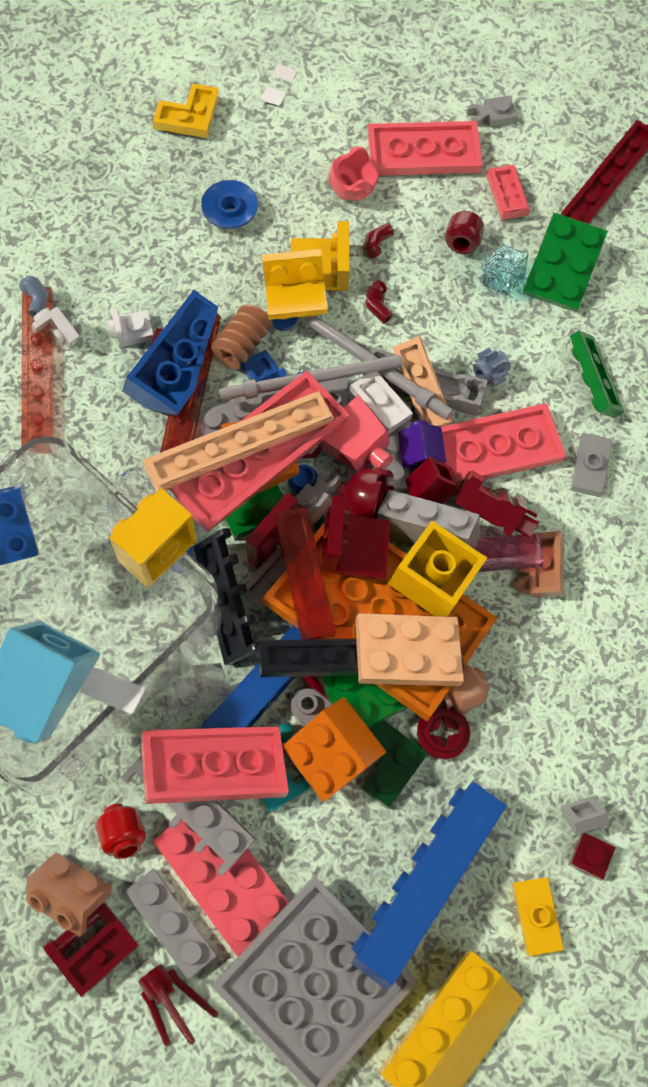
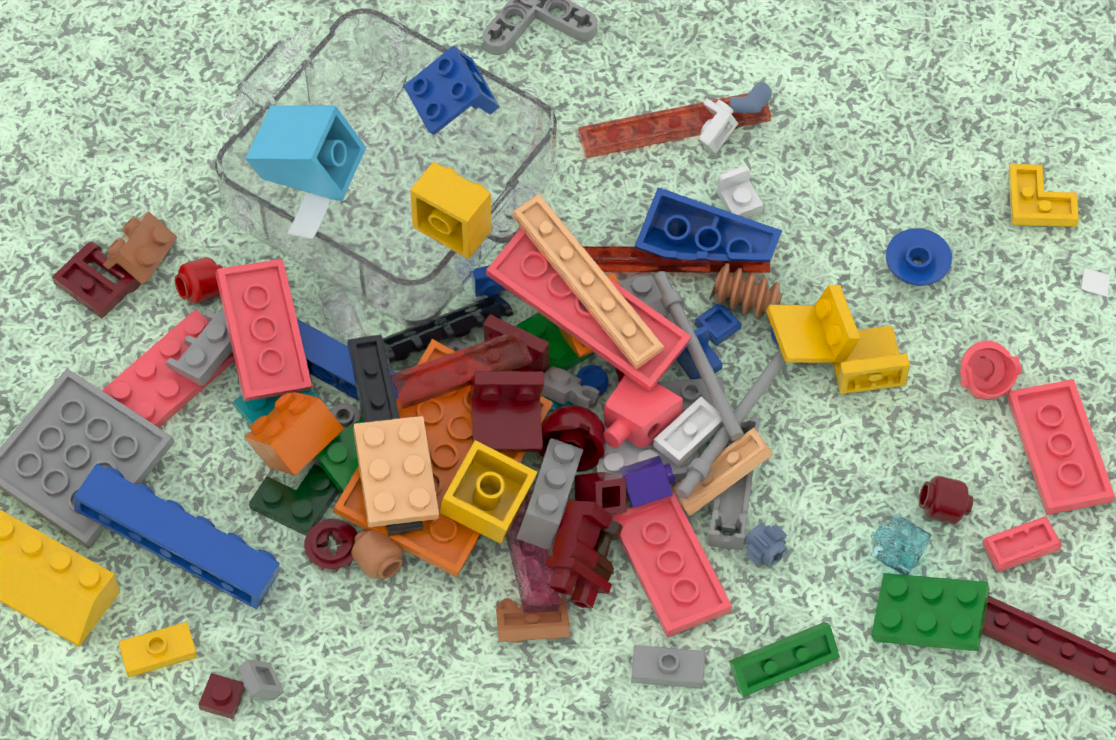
camera: 85 degrees right, 10 degrees down
(157, 988) = (64, 337): dark red plant -> none
(171, 924) = (122, 339): light grey plate -> none
(374, 239) = (917, 410): dark red arm -> none
(375, 301) = (830, 422): dark red arm -> none

